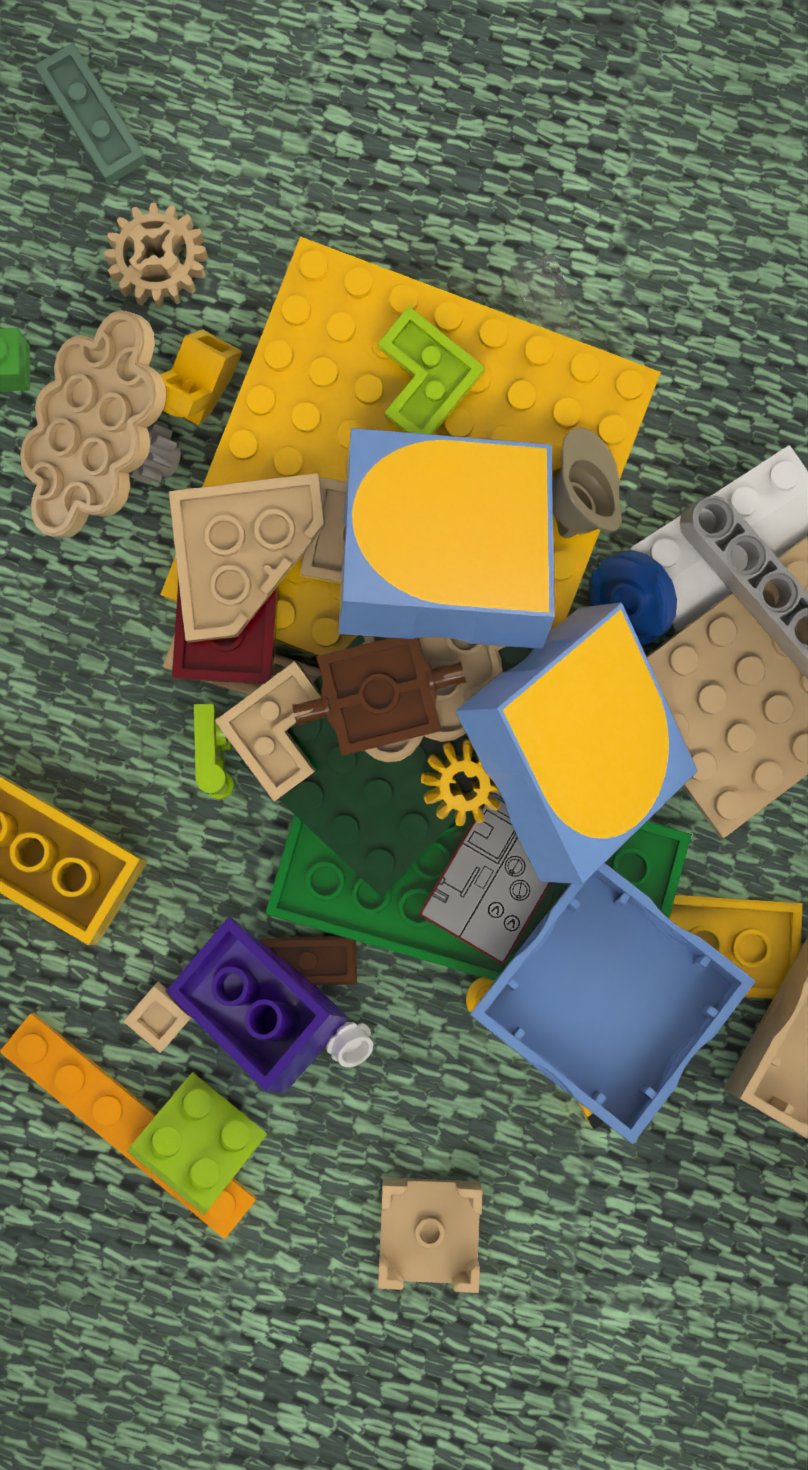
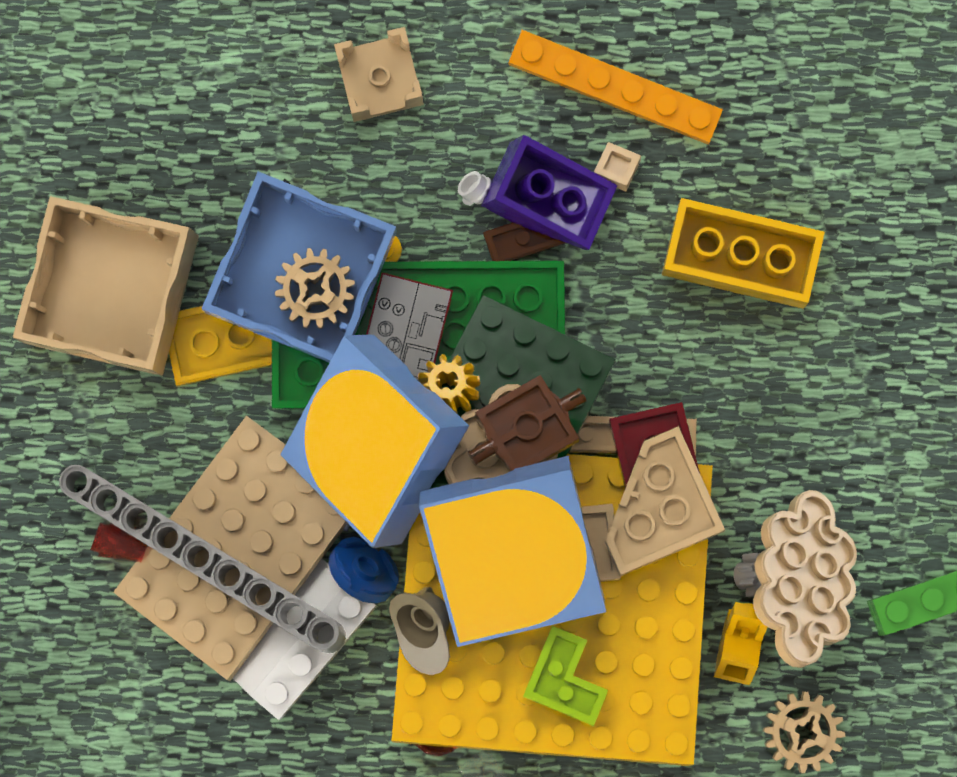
camera: 170 degrees right, 0 degrees up
(197, 1143) = (561, 88): lime plate -> none
(209, 753) = (641, 372): lime plate -> none
(260, 727) = (605, 384): tan plate -> none
(612, 984) = (328, 298): none -> tan gear

